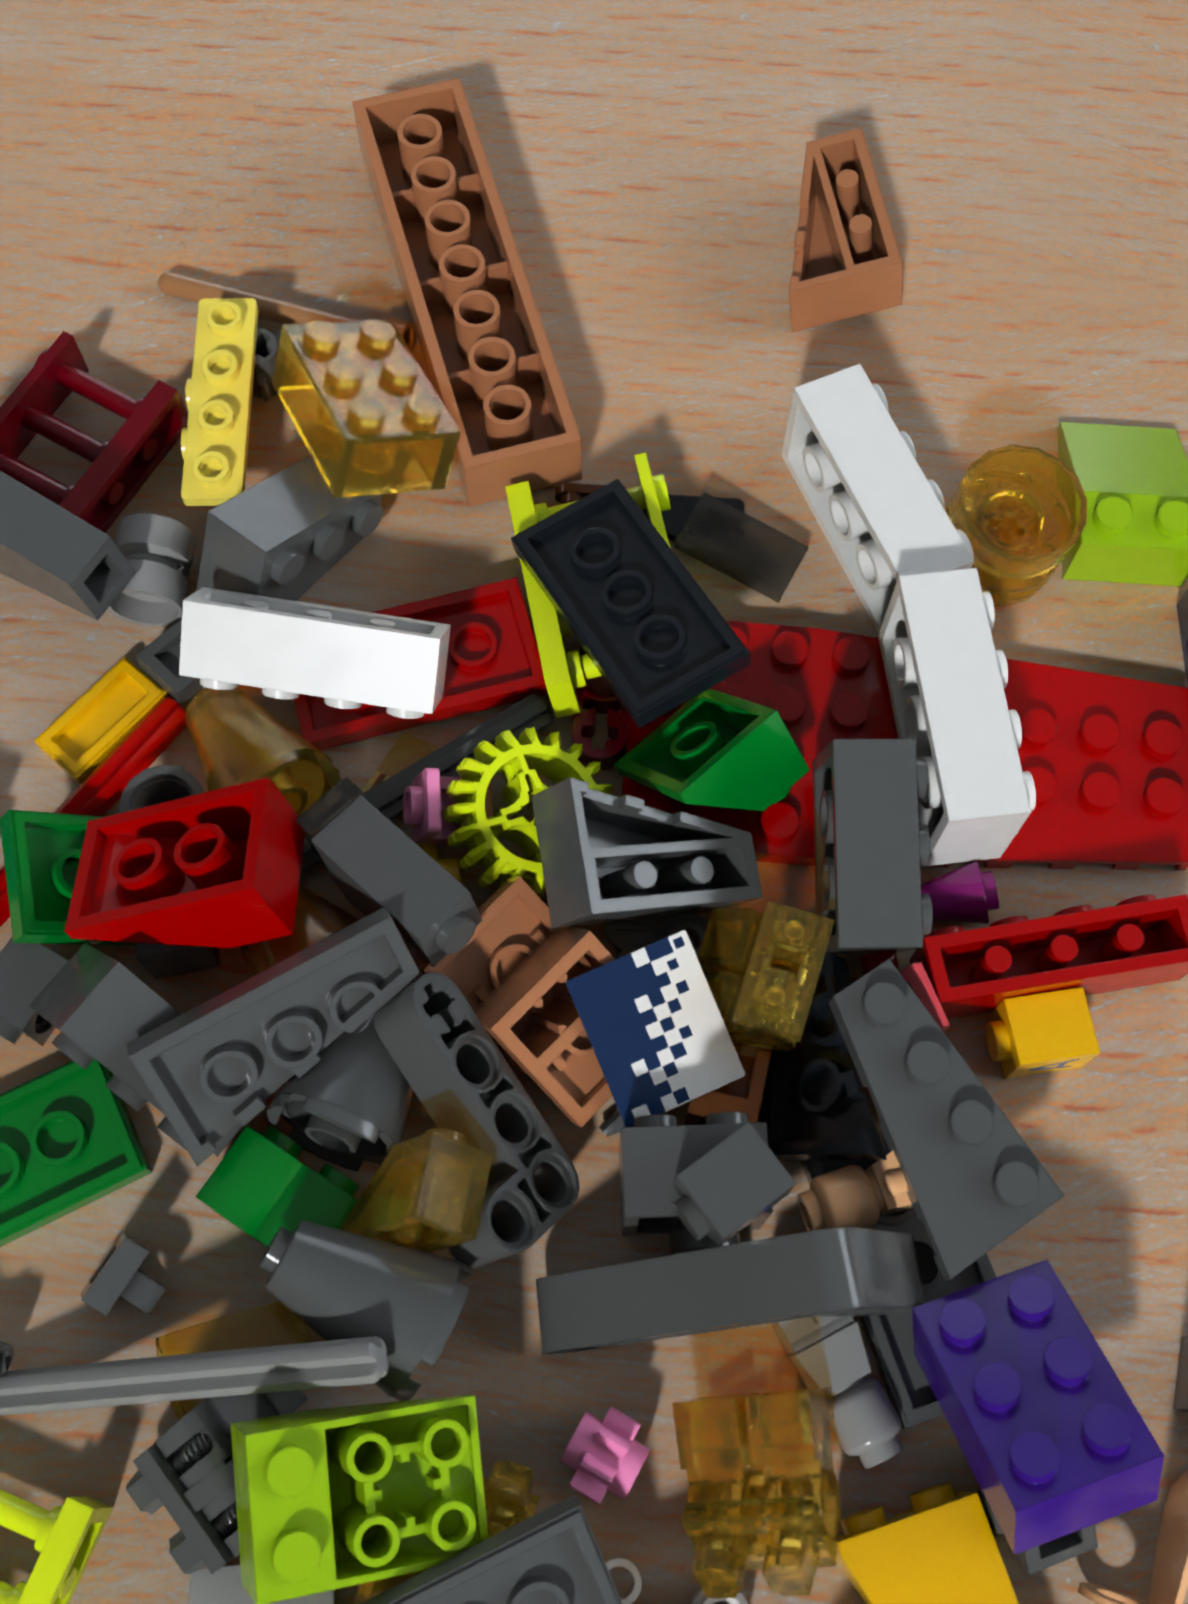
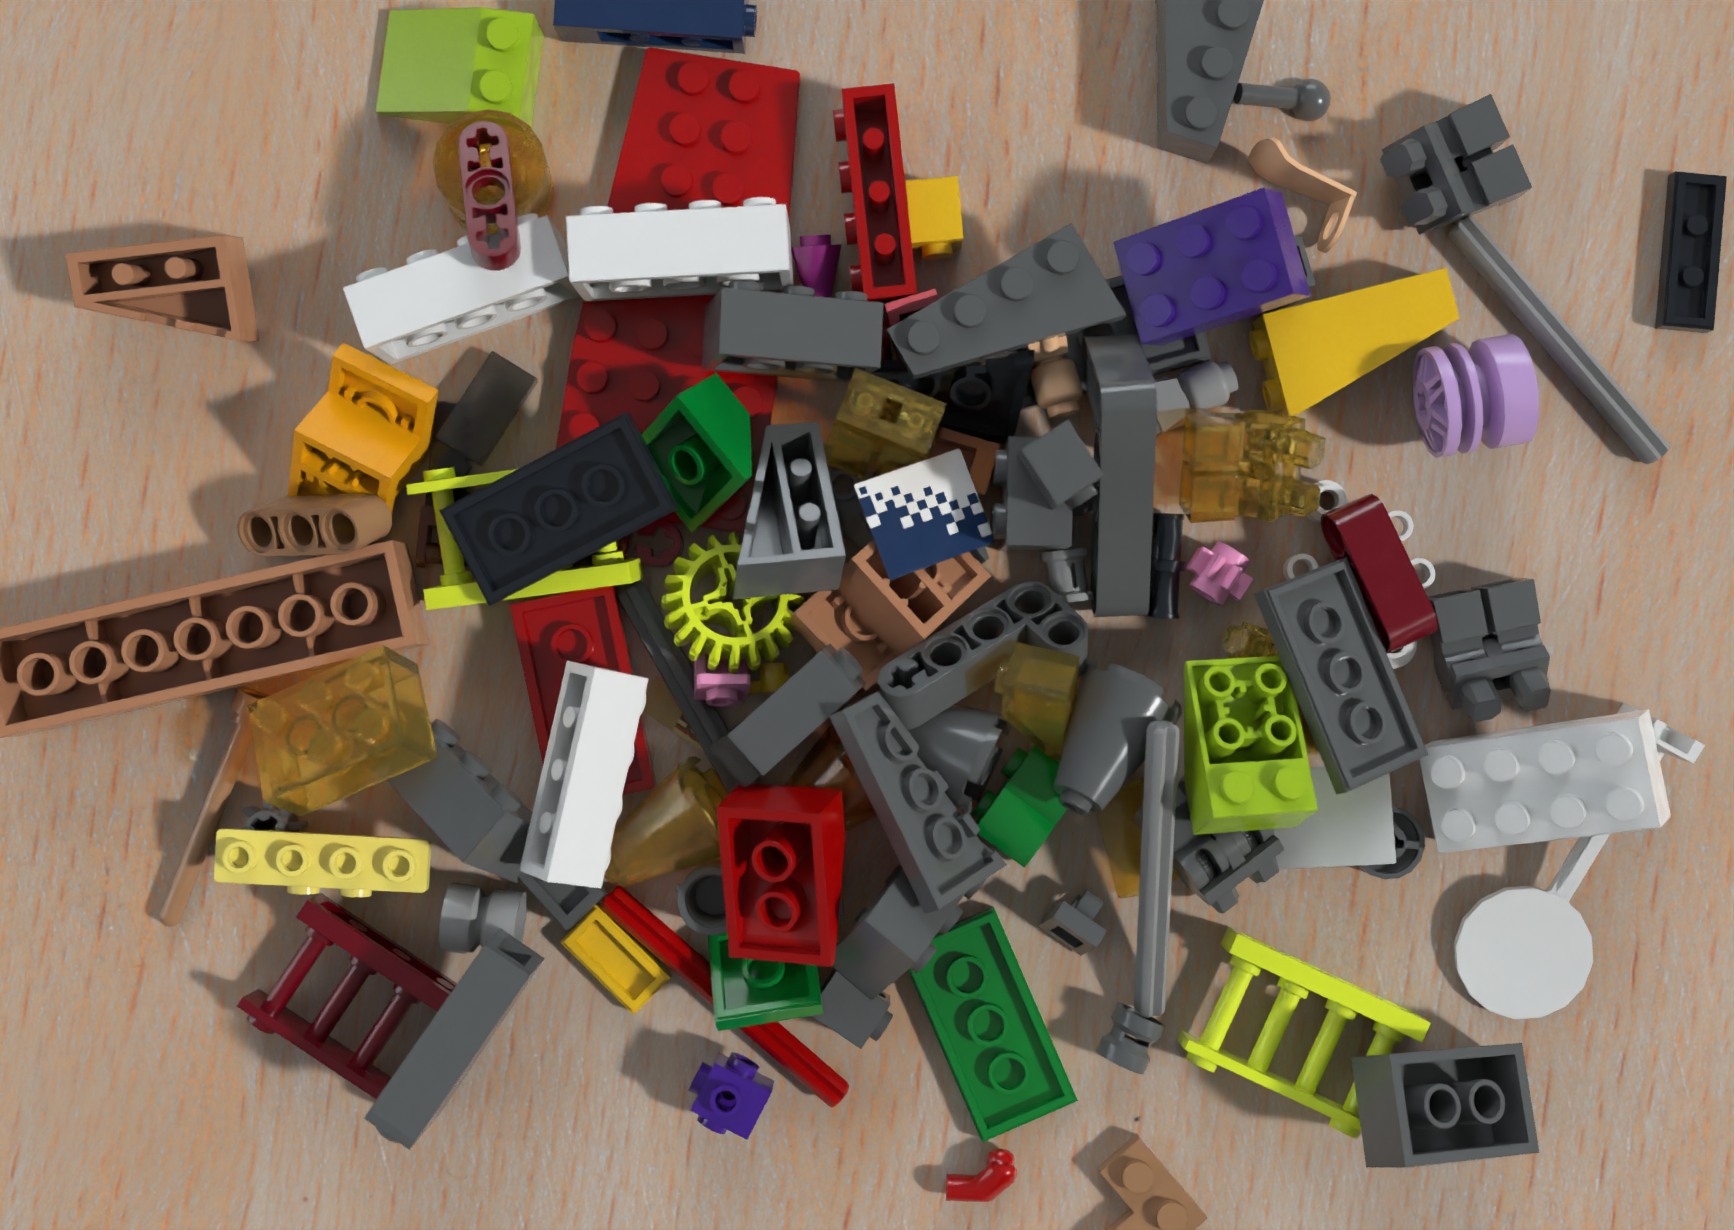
camera: 85 degrees left, 20 degrees up
(590, 1239) = (1068, 574): none -> light grey bush
(594, 373) = (314, 525): none -> medium nougat beam
(611, 1376) = (1165, 565): none -> black pin
(690, 415) = (364, 431): none -> light orange bracket
(967, 513) = (503, 212): none -> dark red beam

